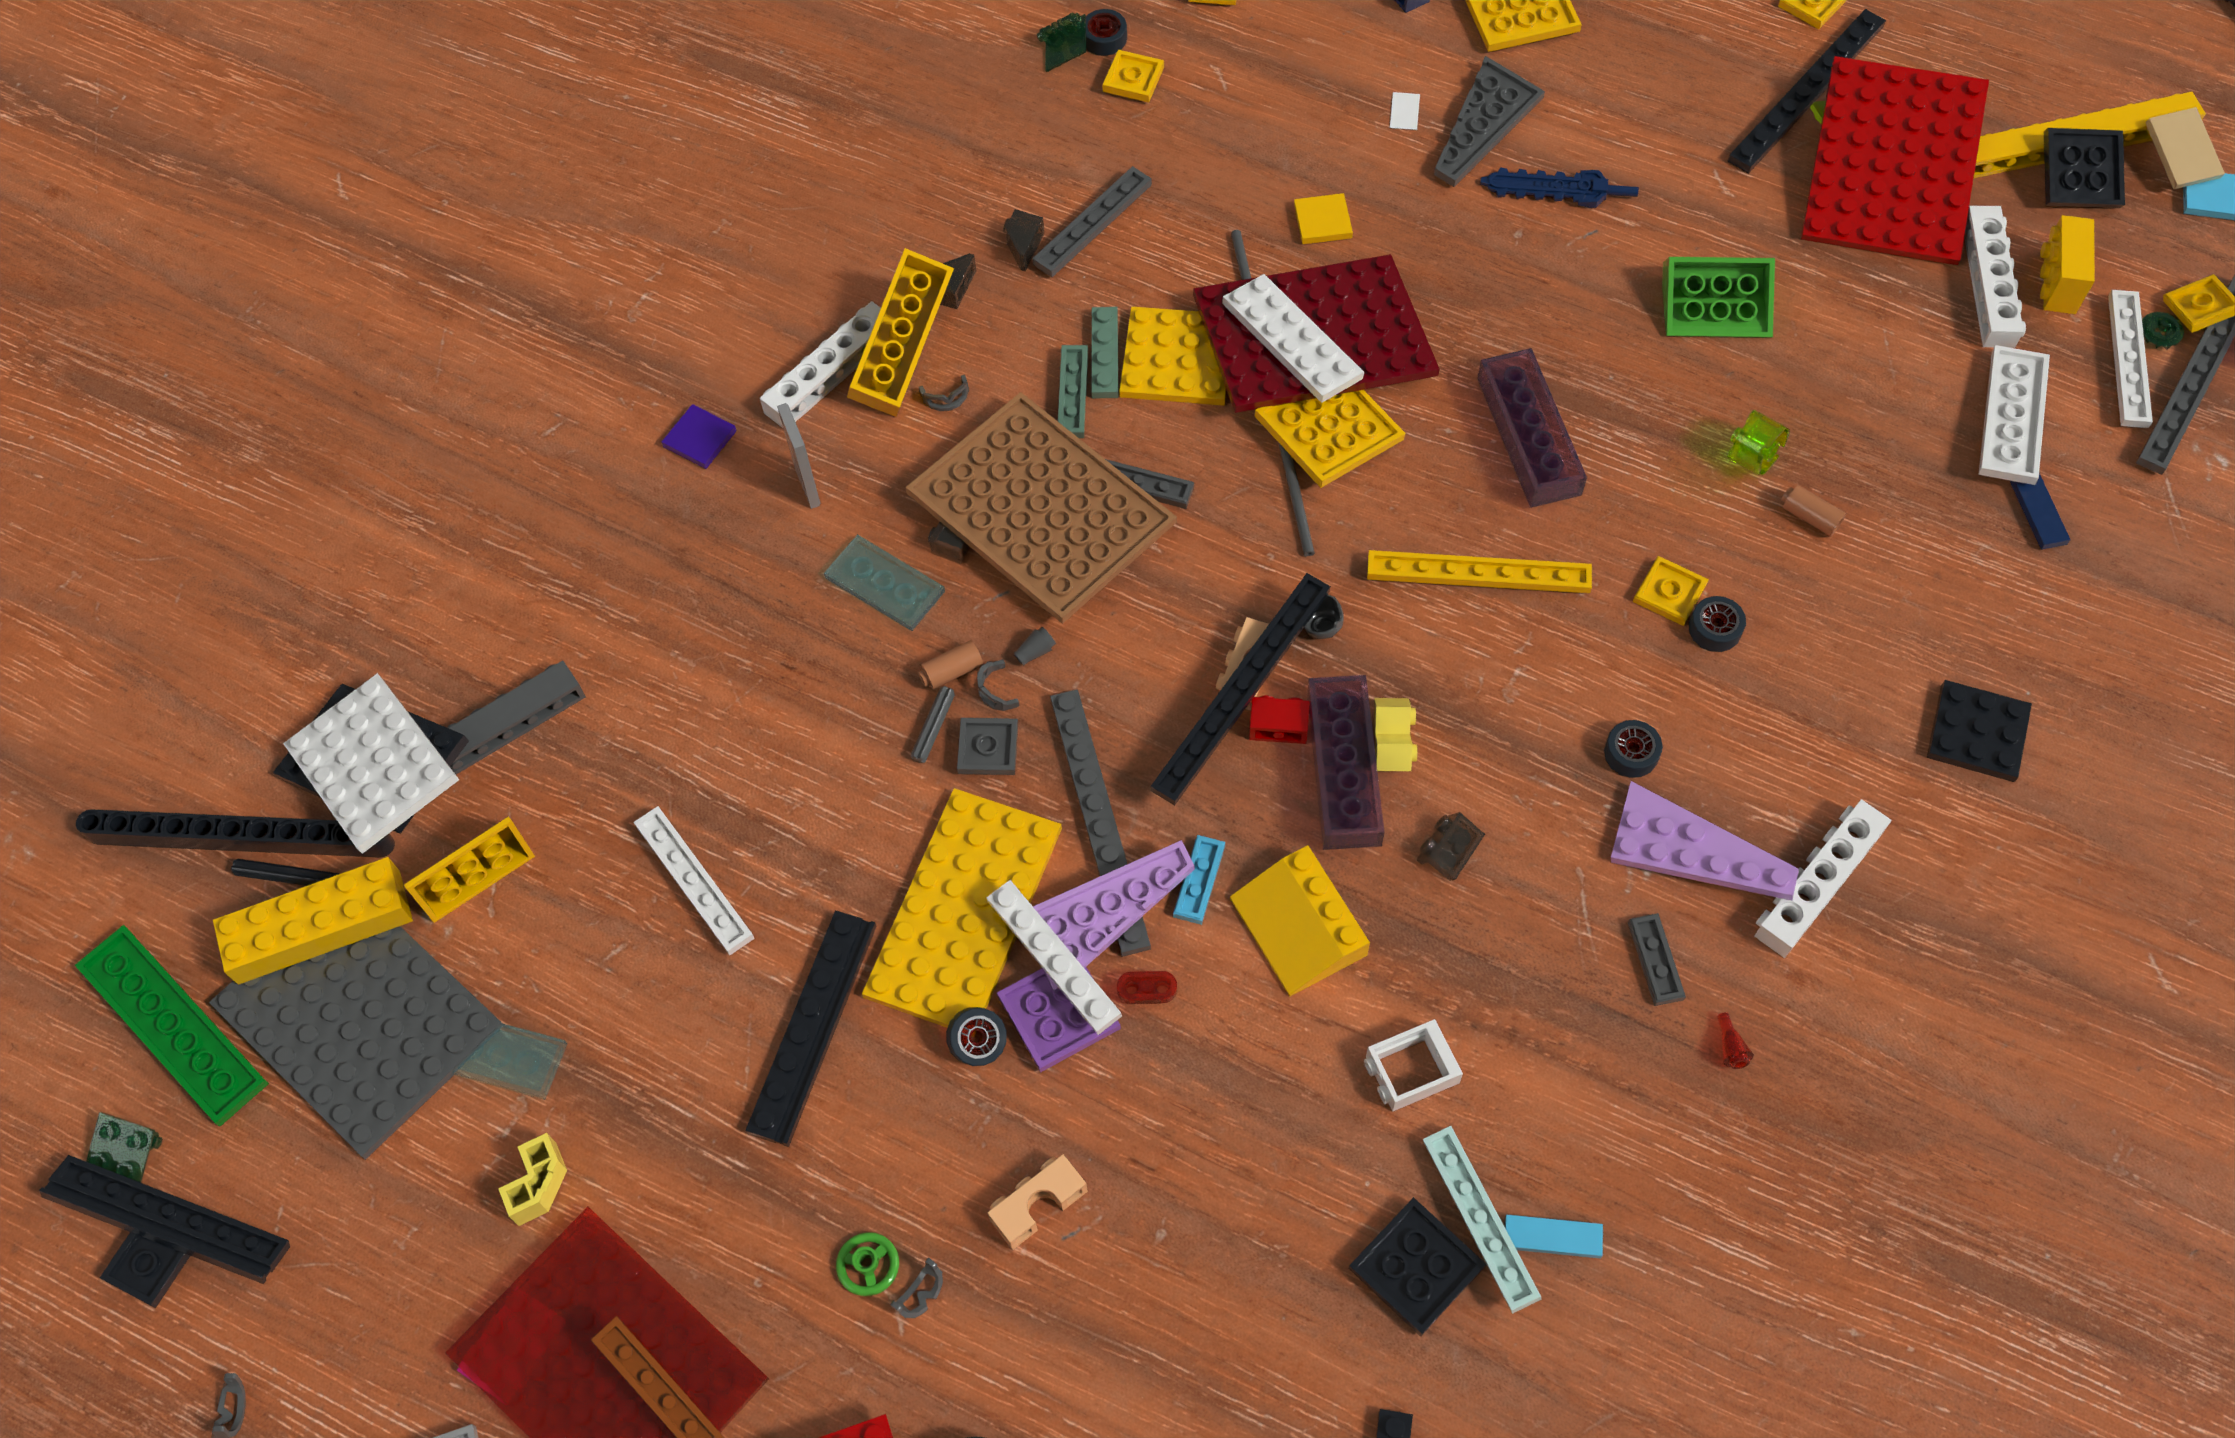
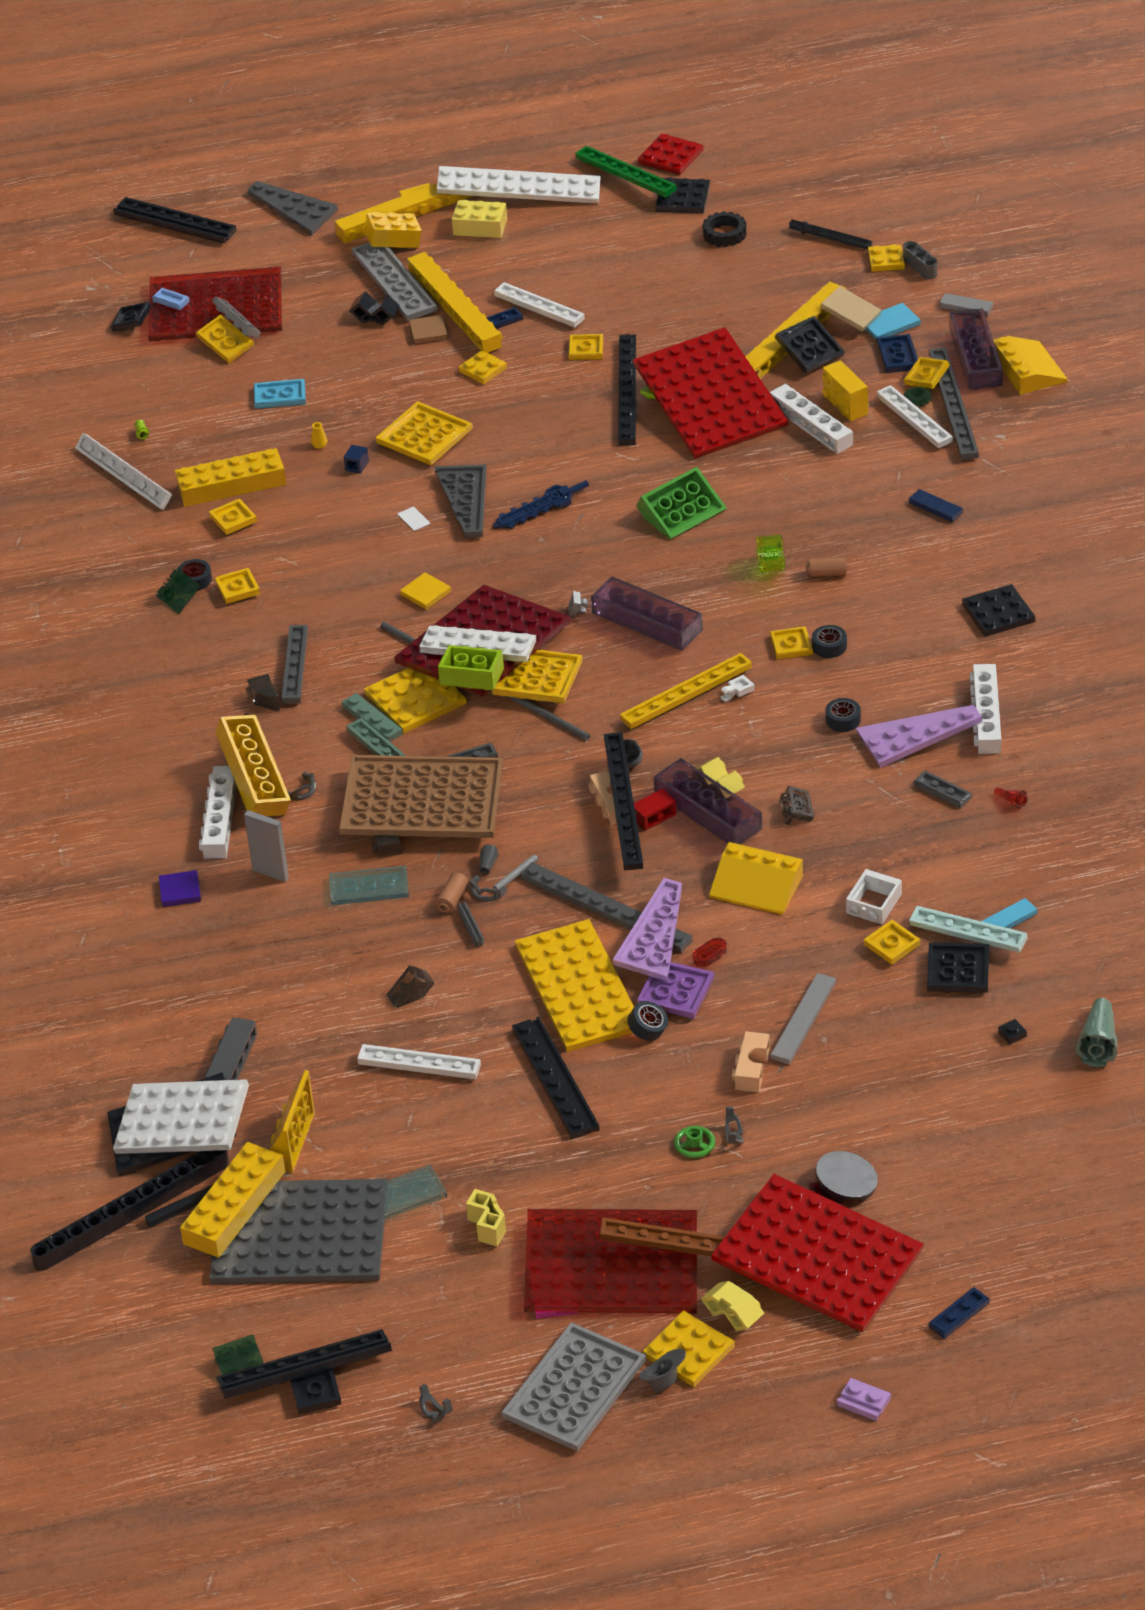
camera: 40 degrees left, 20 degrees down
(172, 1025) = (199, 1299): green plate -> none
(783, 765) = (410, 986): none -> clear smoke slope
(987, 746) = (512, 913): dark grey plate -> none
(1048, 689) = (516, 872): none -> light grey bar
(1054, 957) = (652, 961): white plate -> none
(1162, 1182) = (803, 1018): none -> light grey tile
(1199, 883) = (689, 902): medium azure tile -> none
(1239, 370) = (471, 667): none -> lime brick
(1373, 1154) = (892, 942): none -> yellow plate
(1467, 356) = (576, 603): none -> light grey tile
(1545, 612) = (738, 686): none -> white plate
(2014, 415) = (883, 470): white plate -> none
(2193, 248) = (897, 352): none -> dark blue tile

